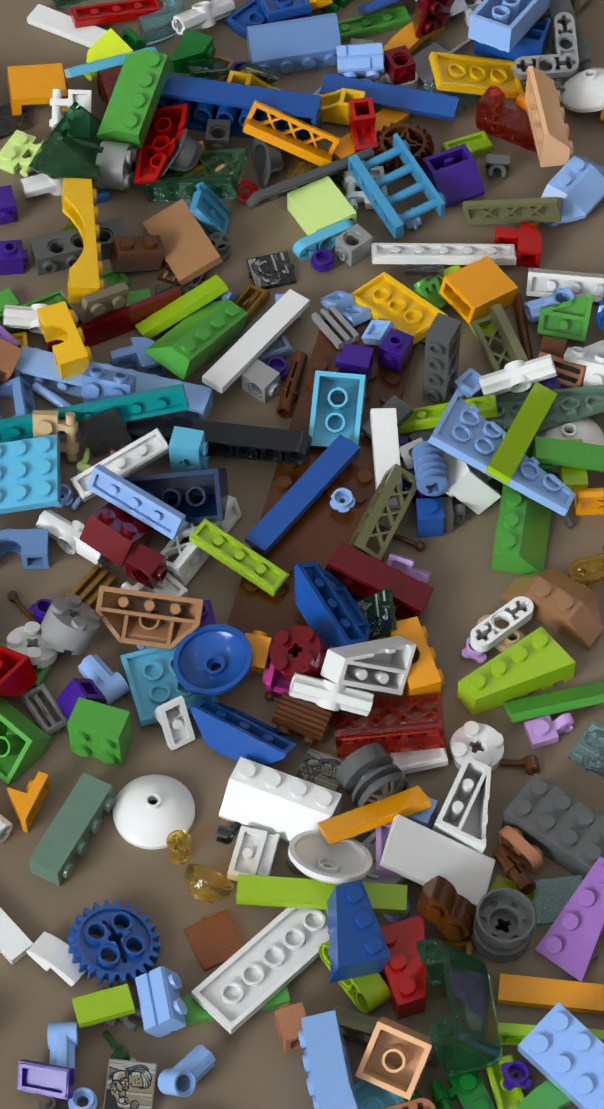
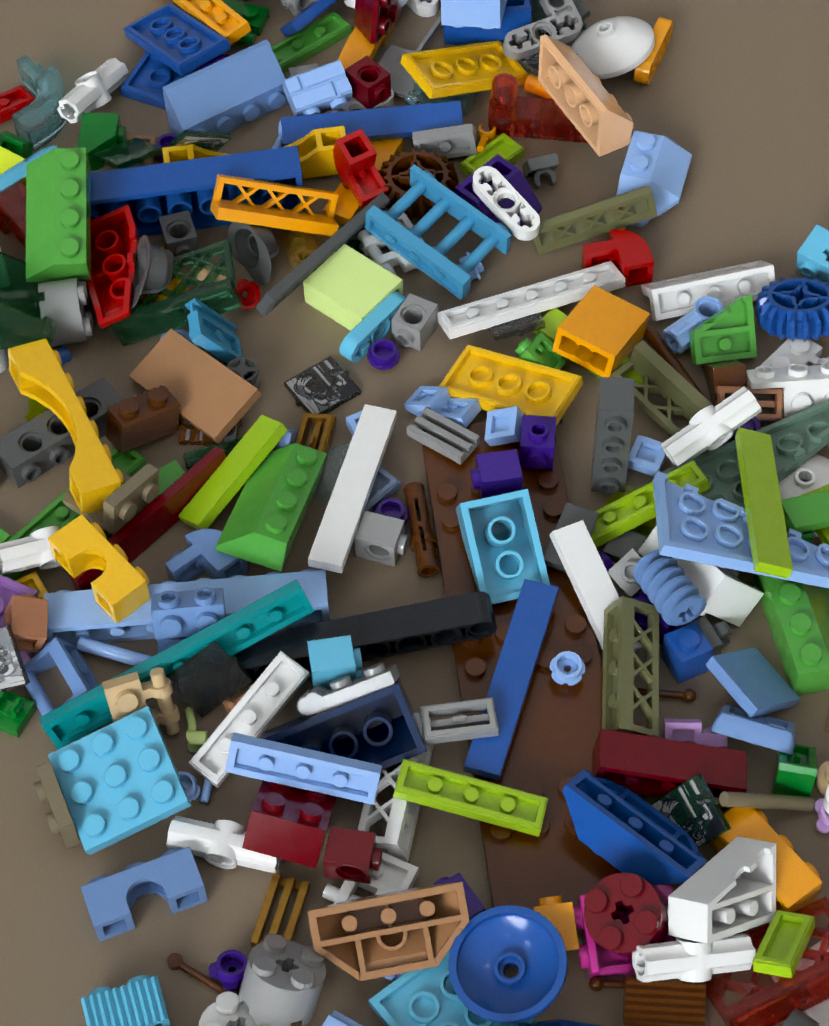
camera: 20 degrees left, 0 degrees up
(186, 463) = (345, 690): none -> hinge
(251, 511) = (461, 721): none -> light grey tile
(395, 707) = (784, 944): none -> lime tile
(431, 622) = (766, 801): none -> dark tan bar
(438, 124) = (448, 141): none -> light grey panel
(450, 189) = (508, 216): none -> white beam
(450, 578) = (759, 730): none -> medium blue piece
(463, 549) = (752, 682): none -> medium blue tile
(463, 613) = (795, 771): none -> green slope
(468, 129) = (485, 137): none -> light orange hand

